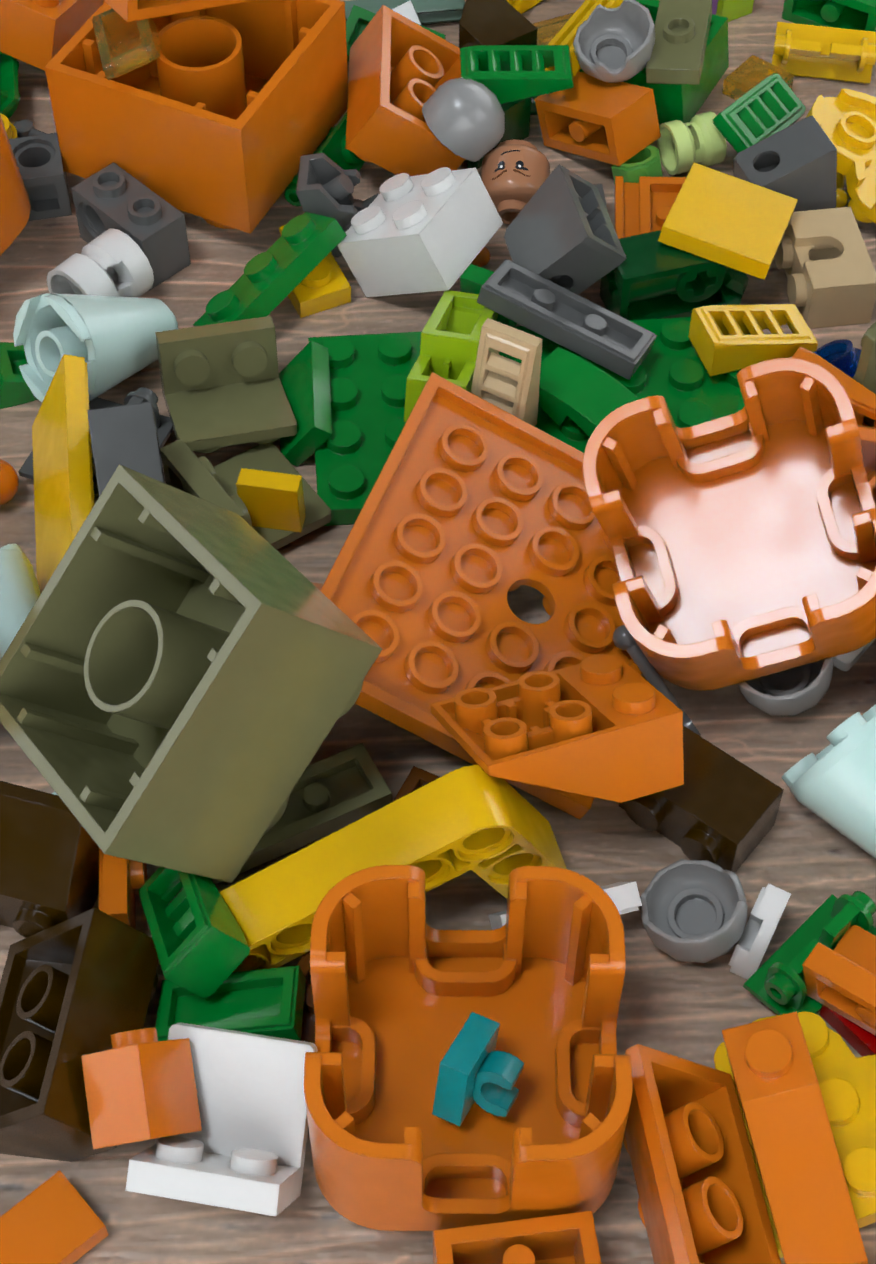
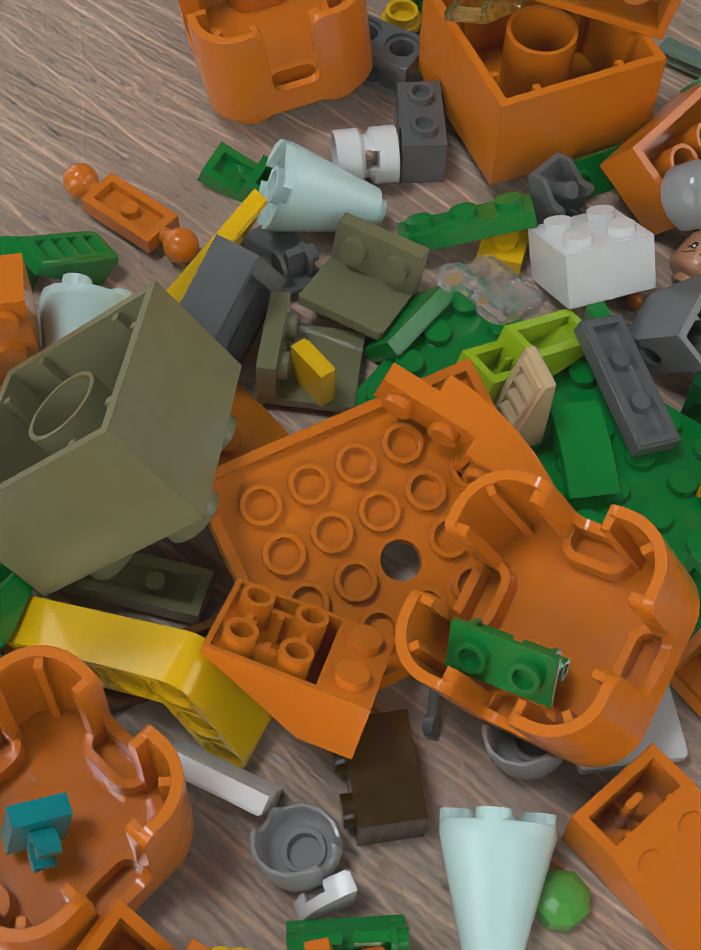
camera: 40 degrees right, 5 degrees up
(374, 320) = (493, 287): none -> clear plate
(480, 425) = (459, 419): none -> orange slope
(737, 594) = (504, 662): none -> green hinge

